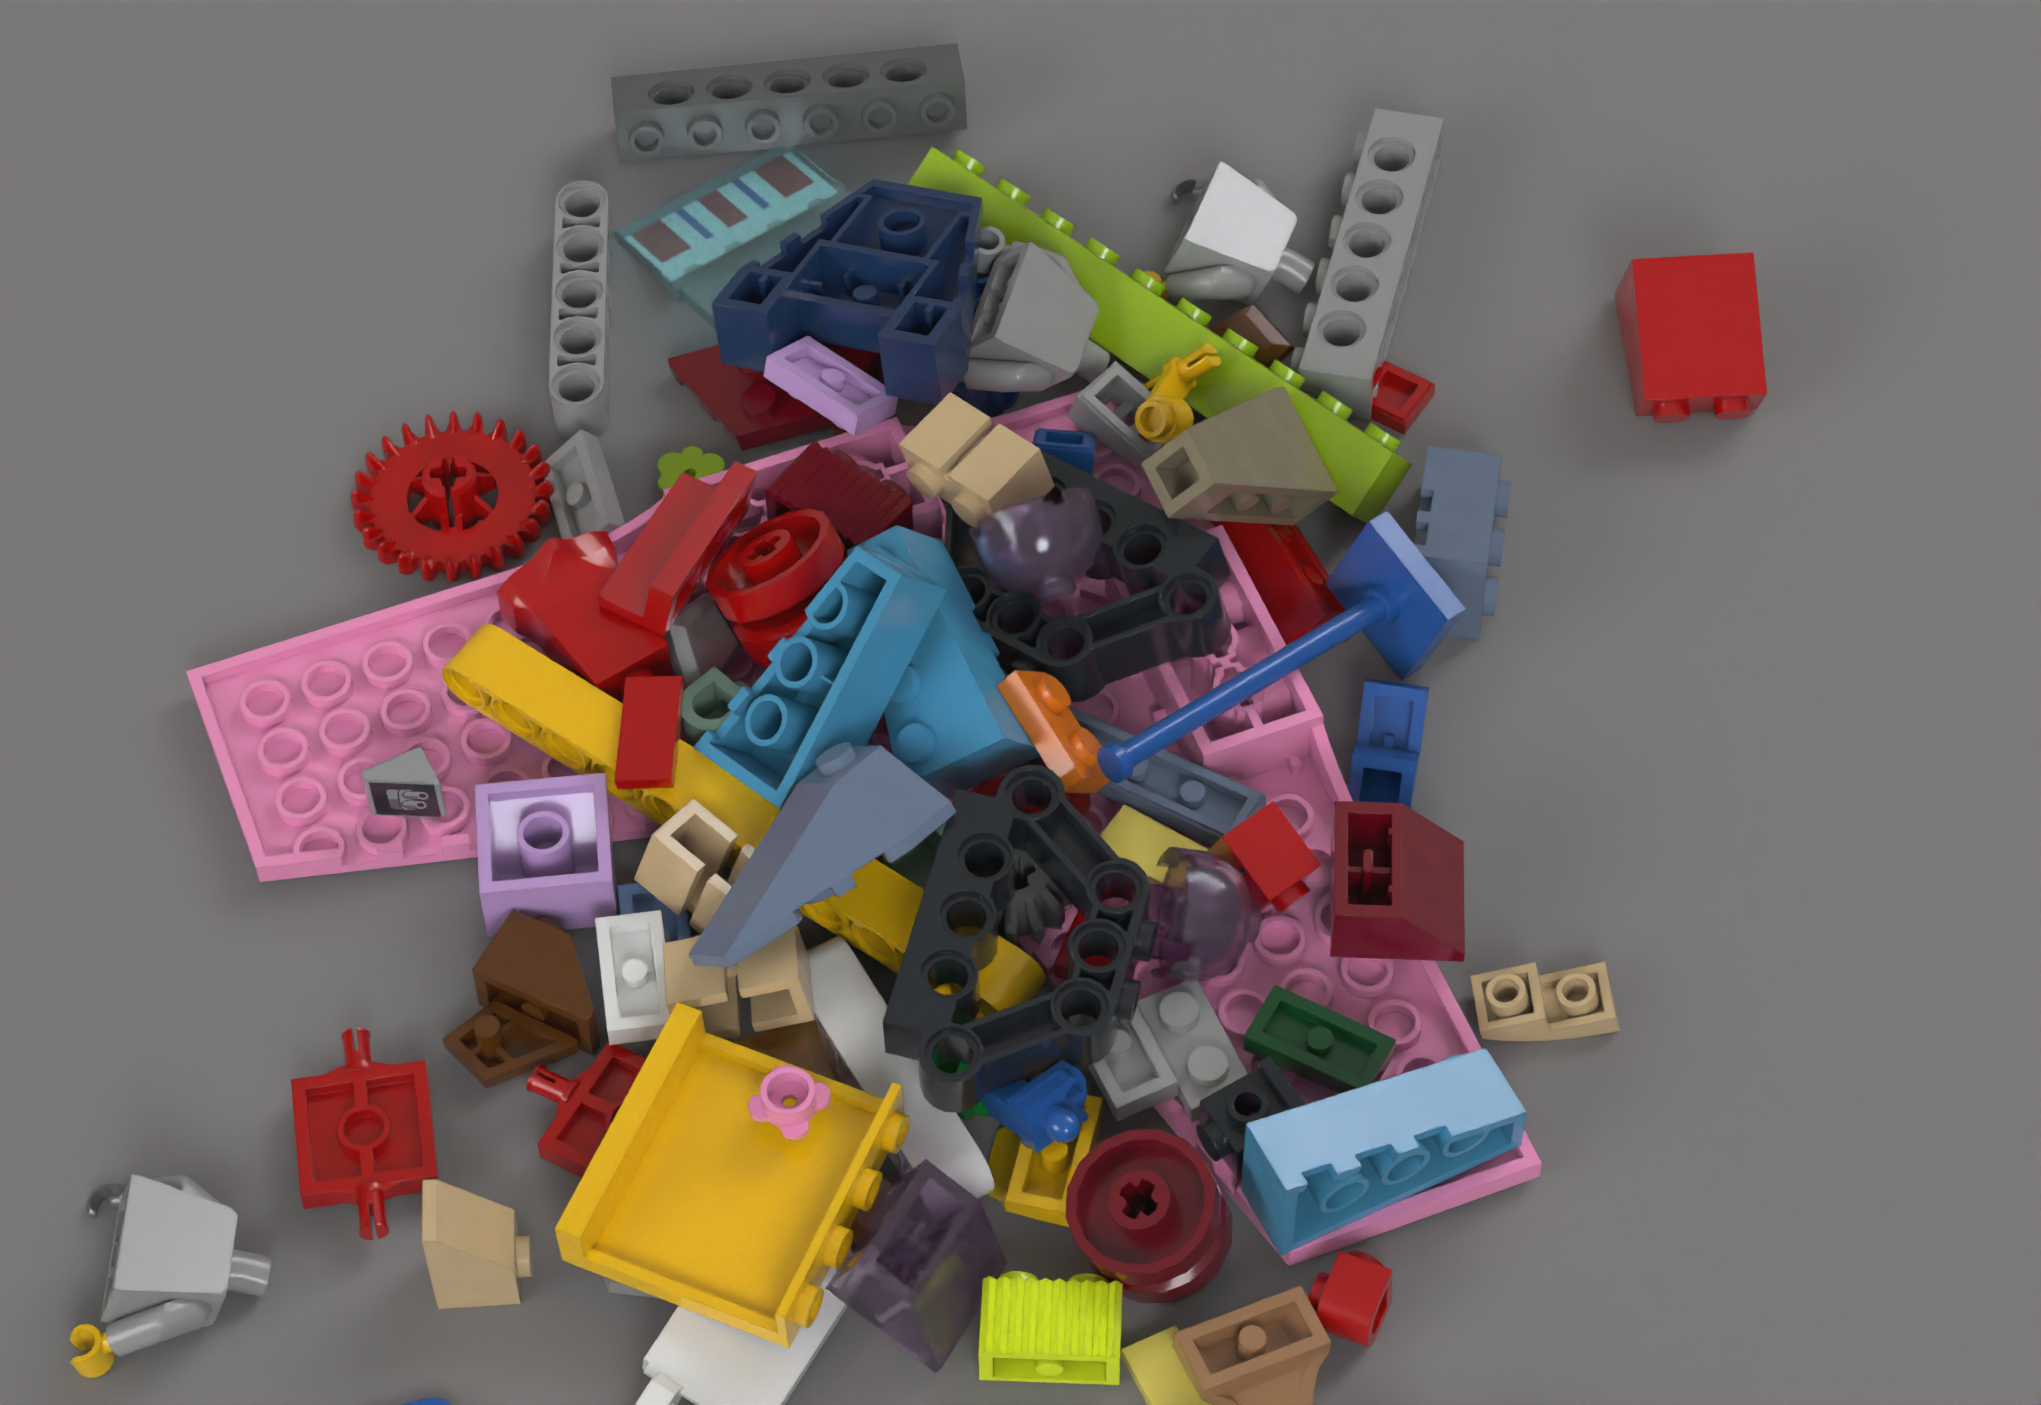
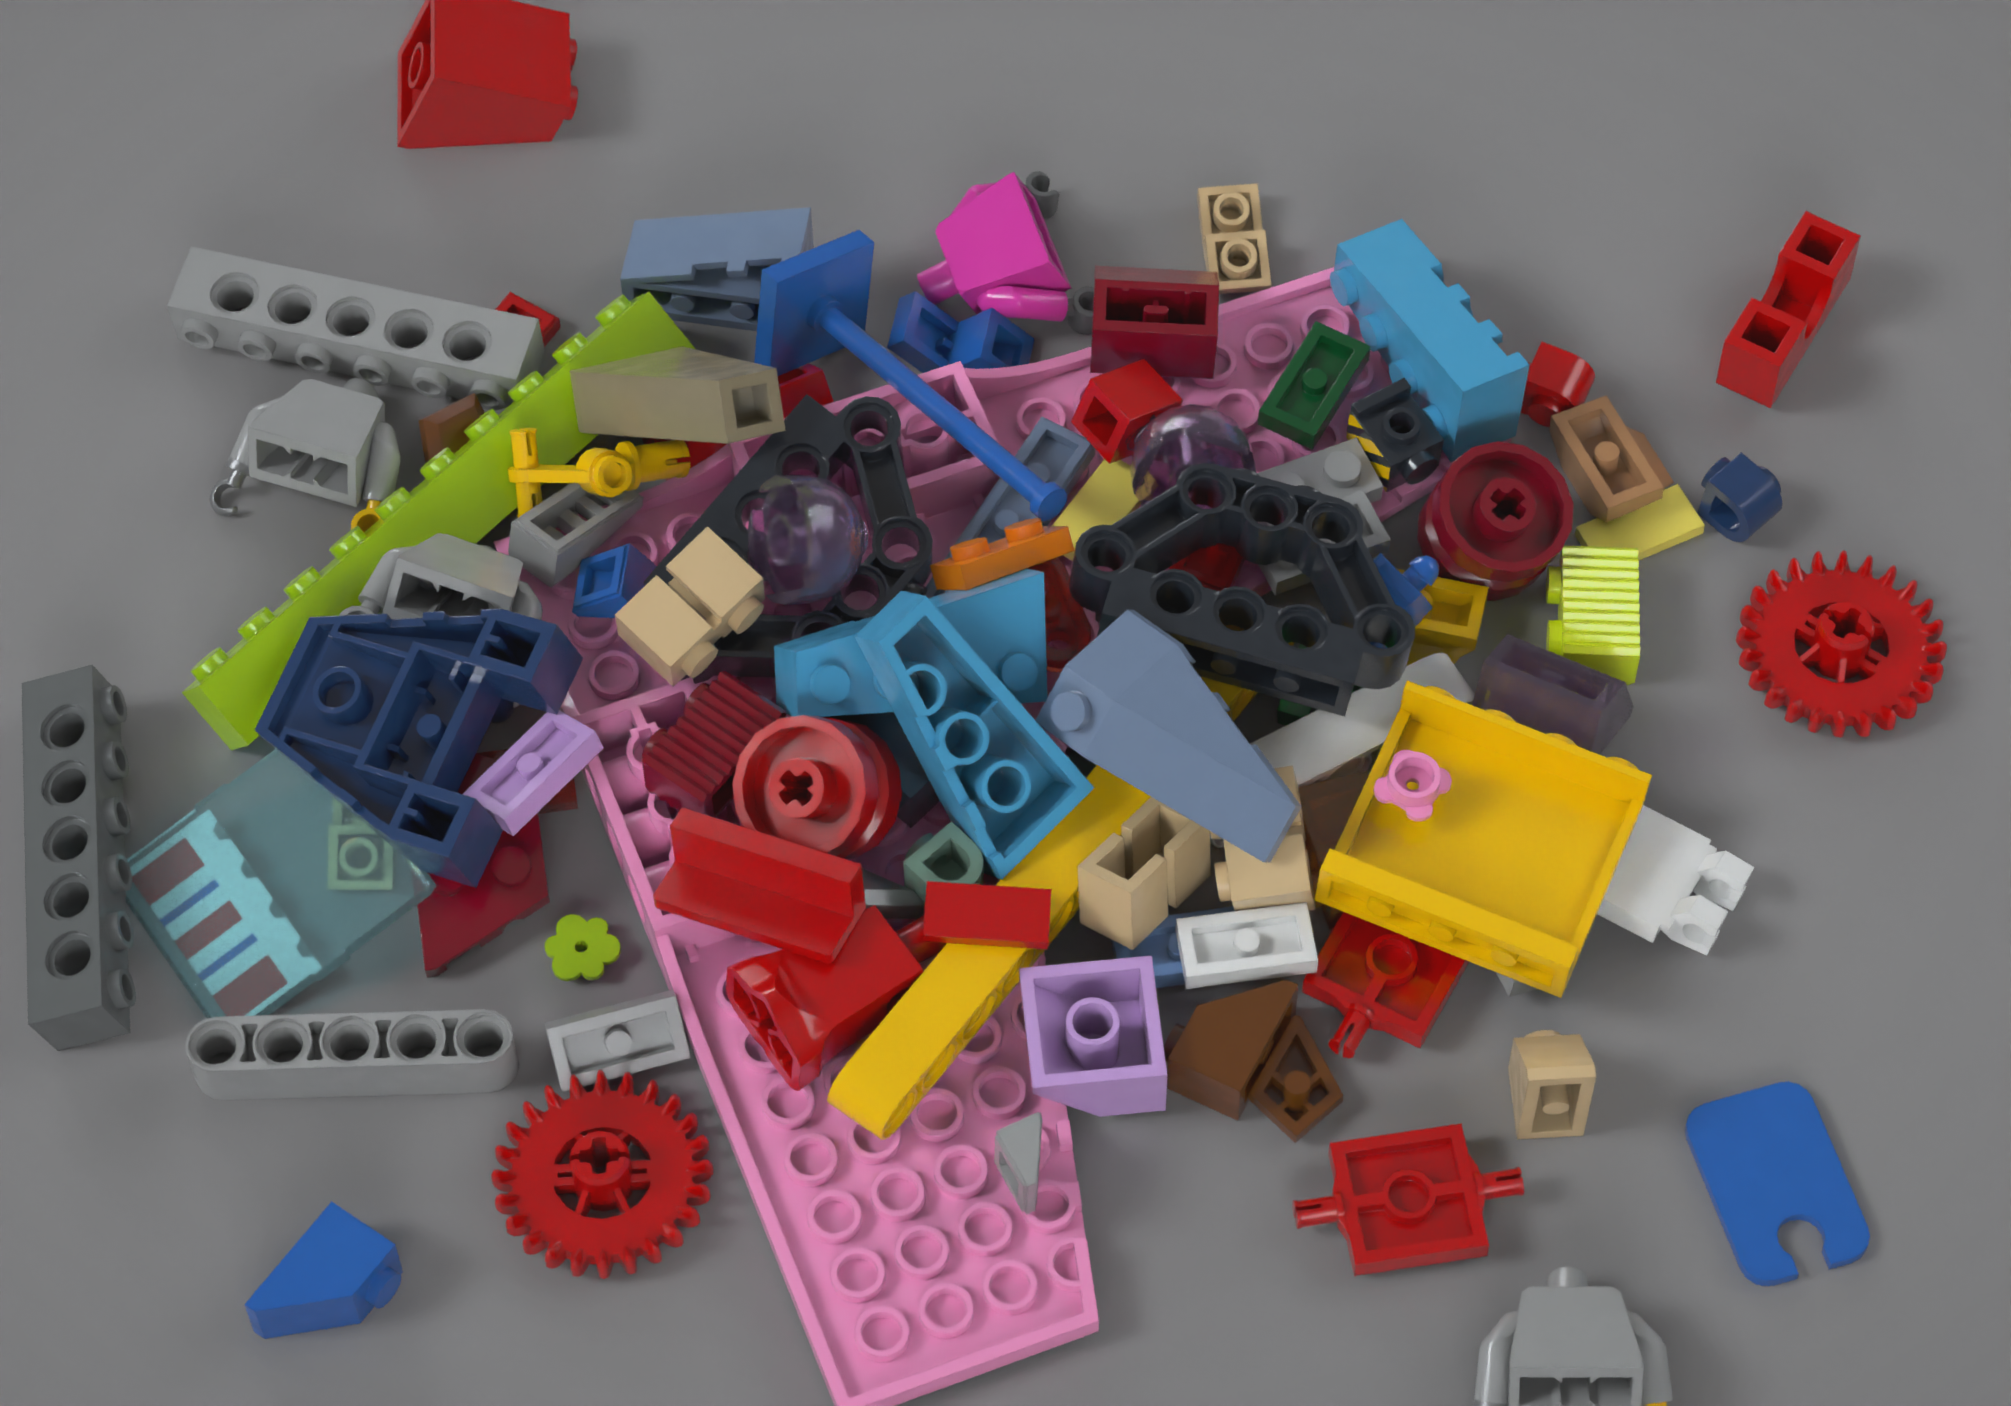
camera: 90 degrees left, 5 degrees up
(369, 307) = (327, 1278): none -> blue slope
(1502, 772) = (1005, 255): none -> dark pink torso

